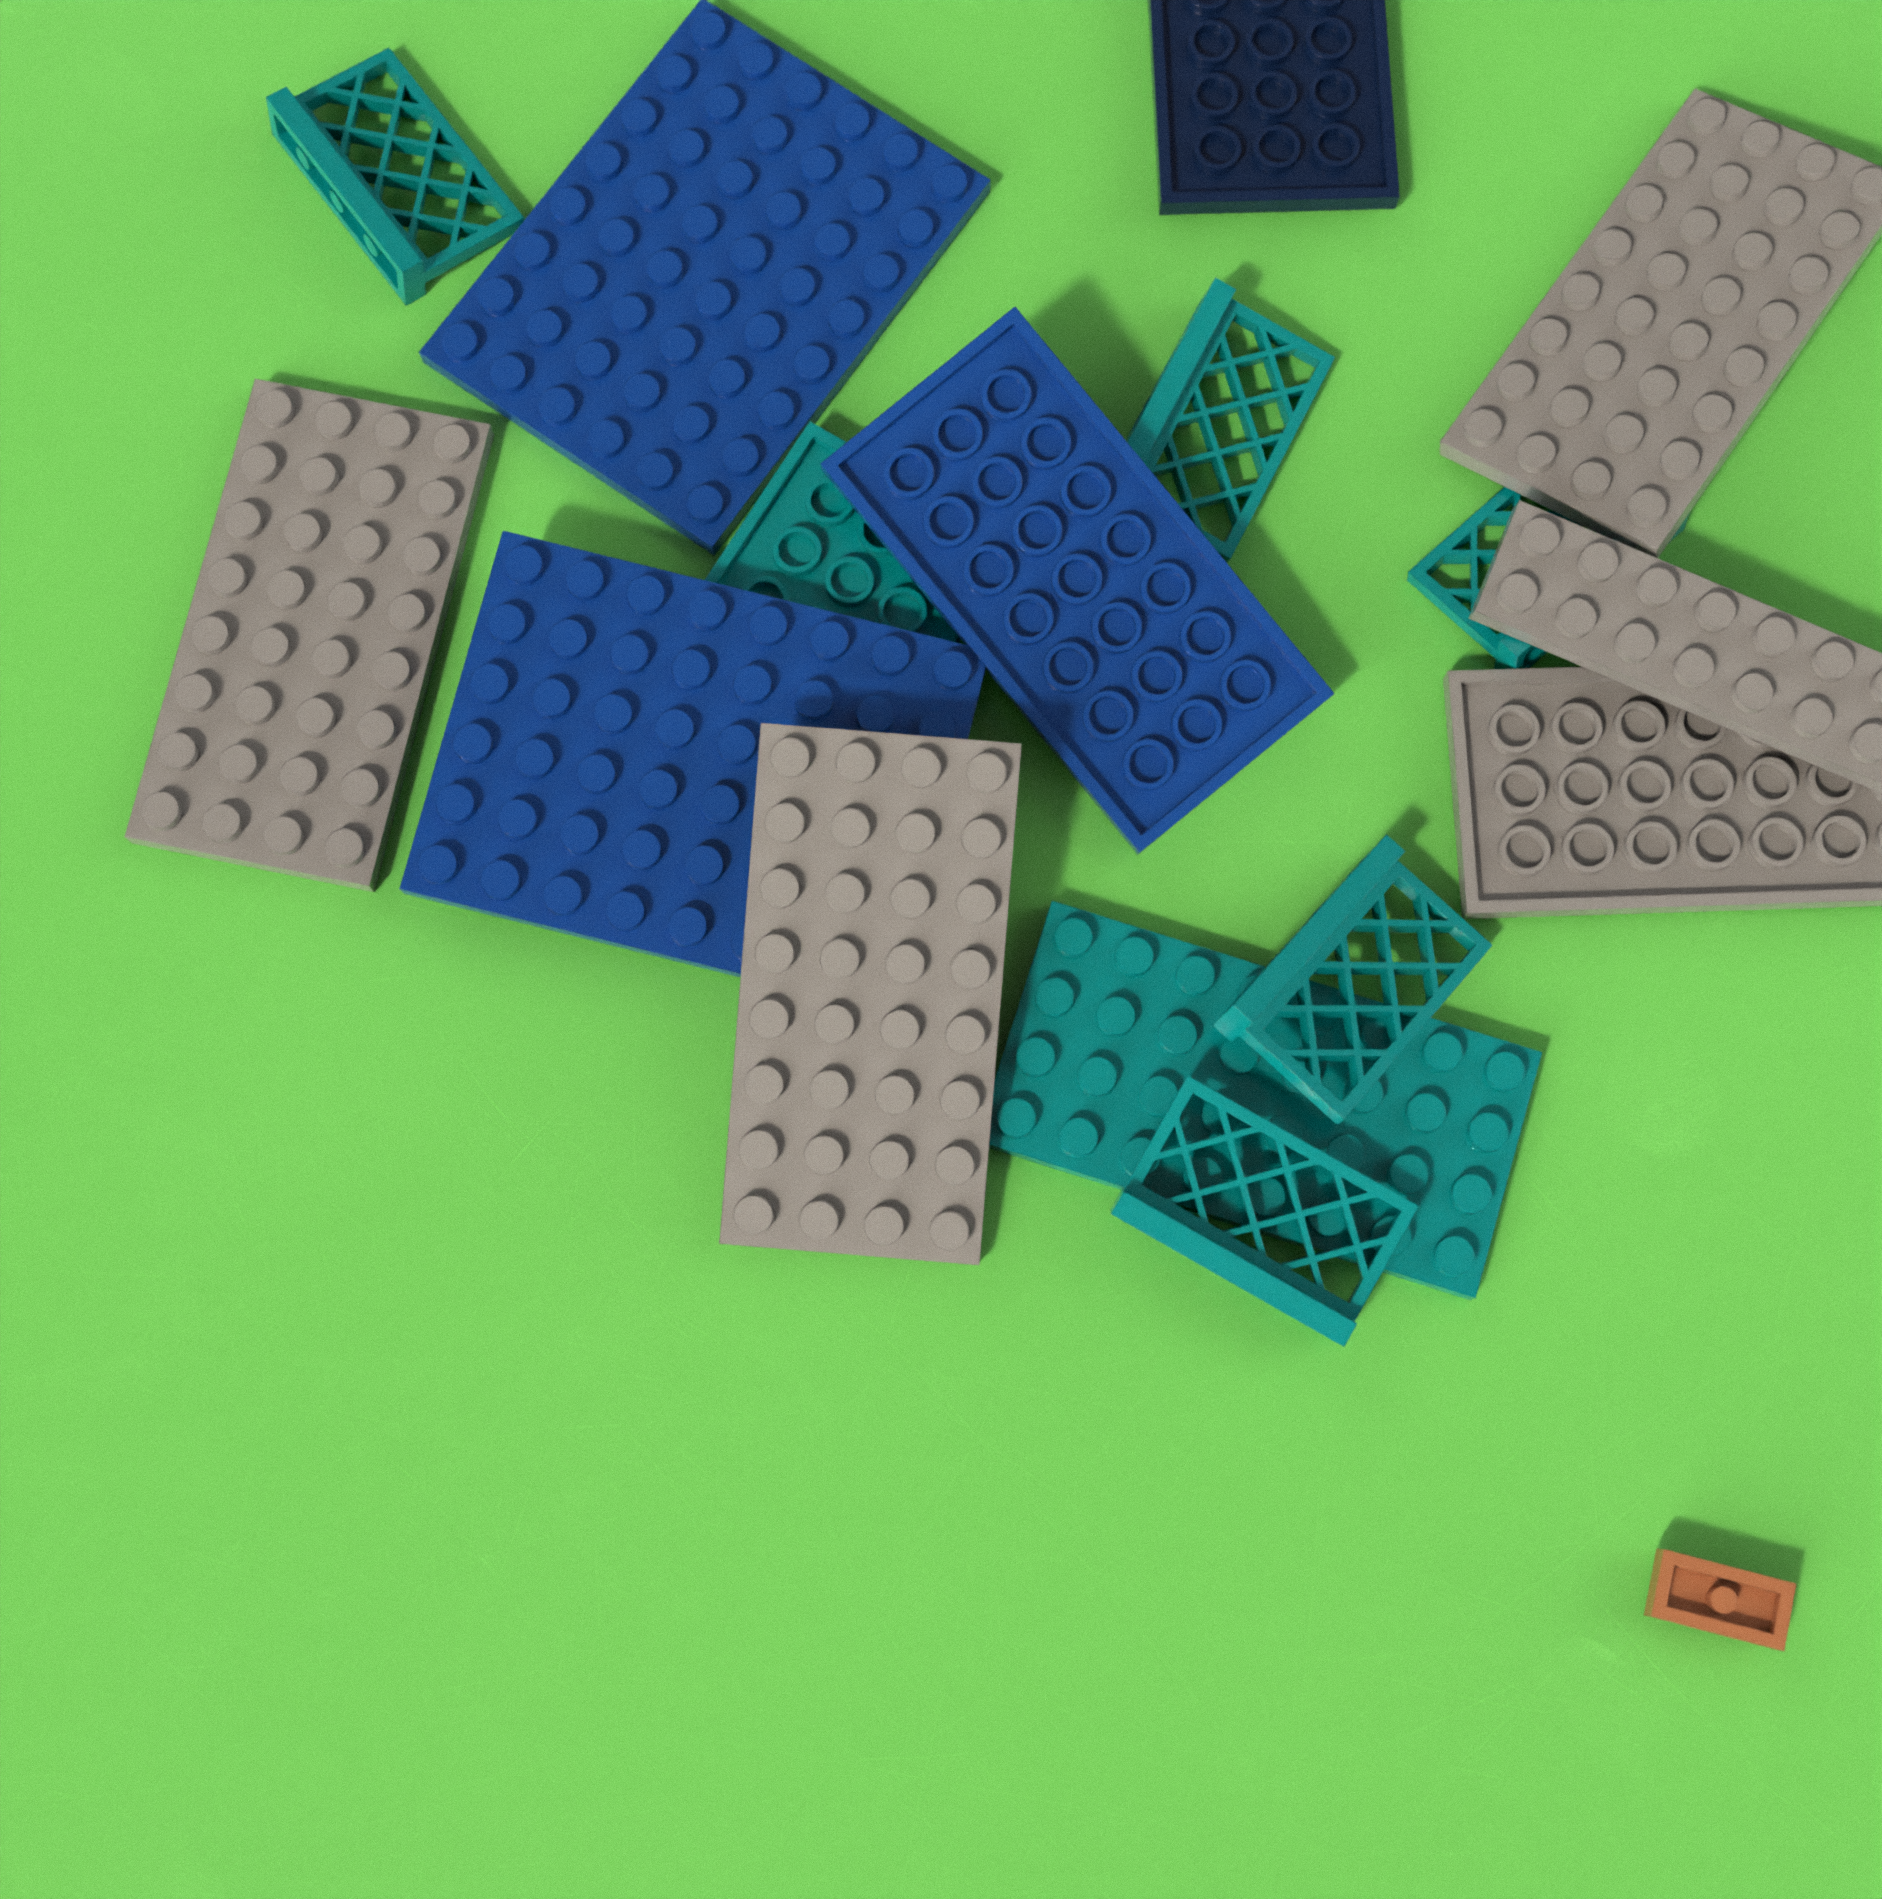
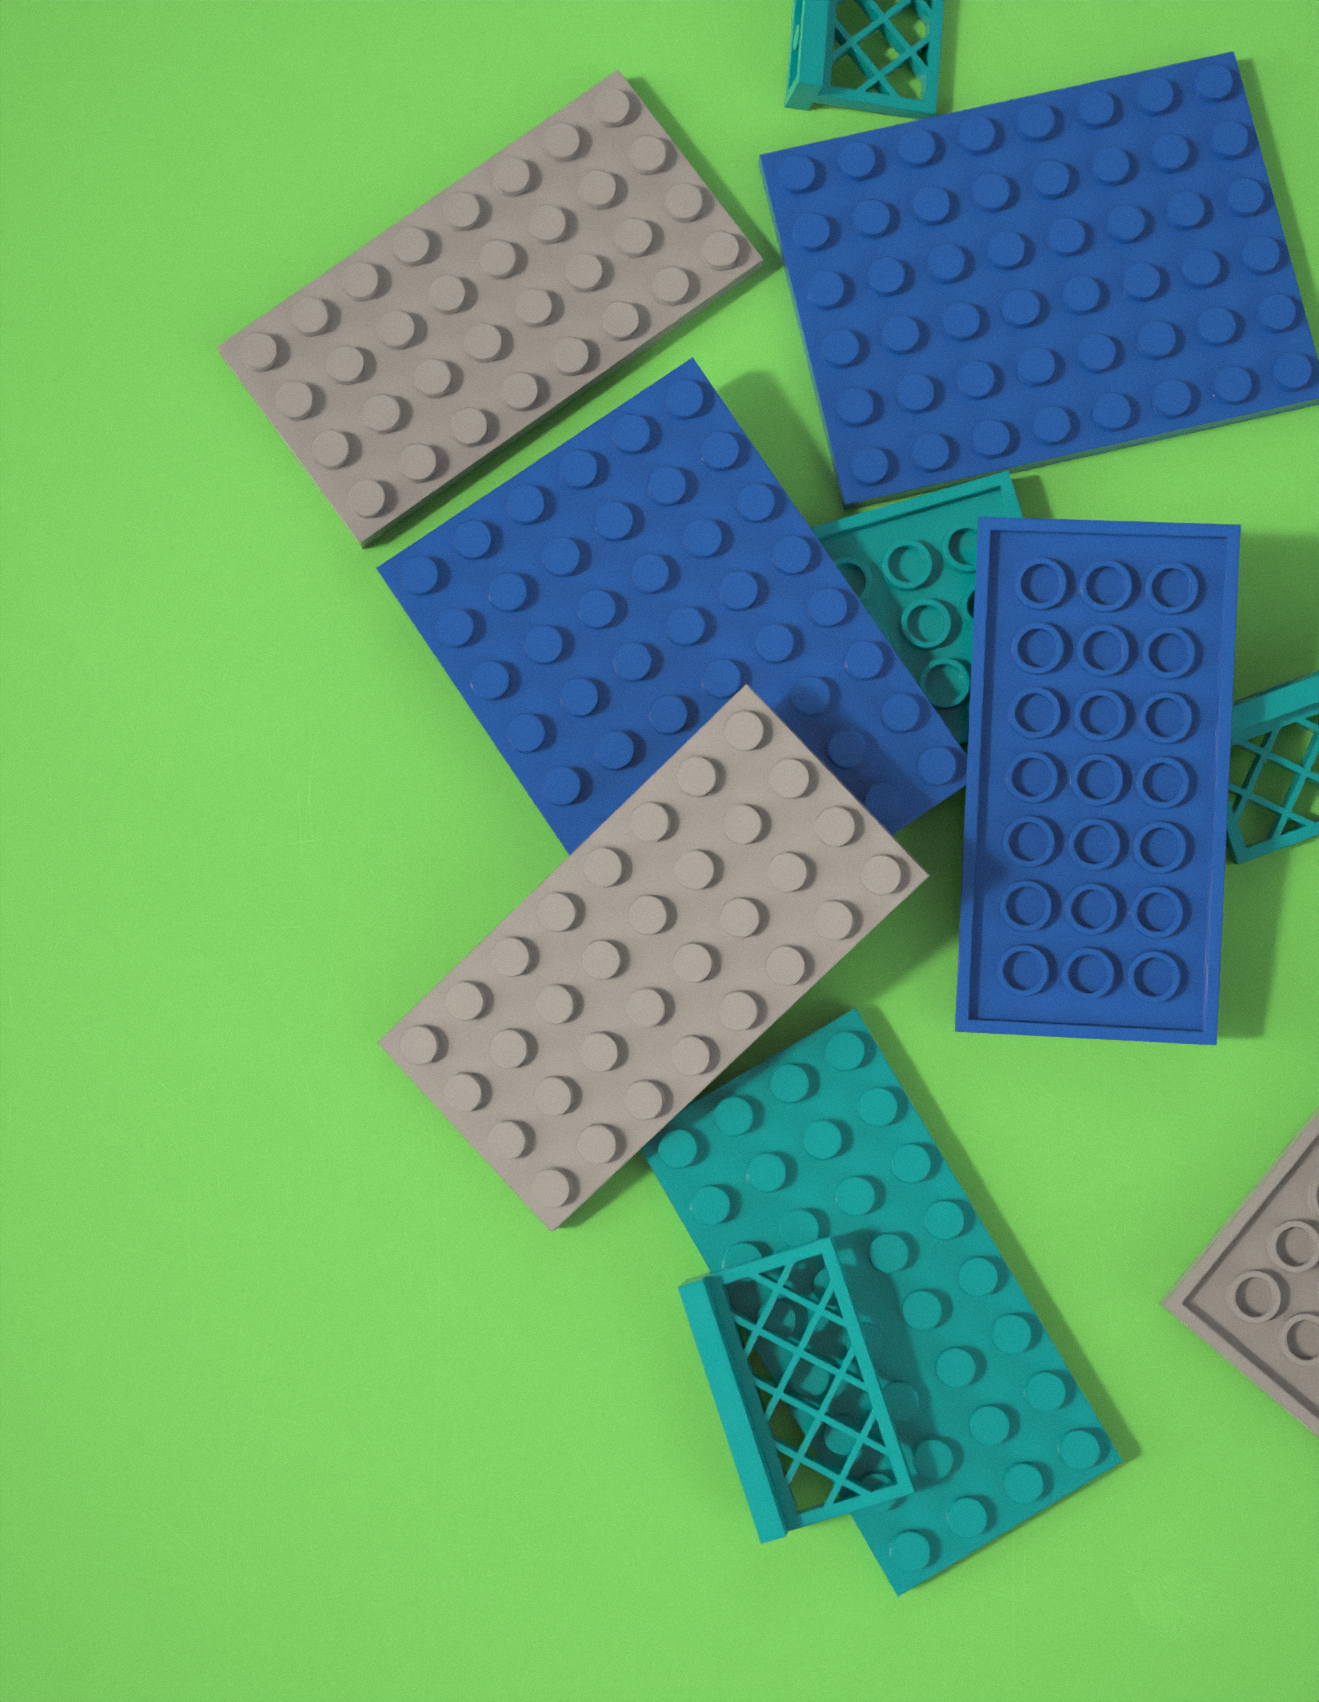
camera: 40 degrees right, 5 degrees up
(1306, 955) = (1016, 1223): teal fence -> none

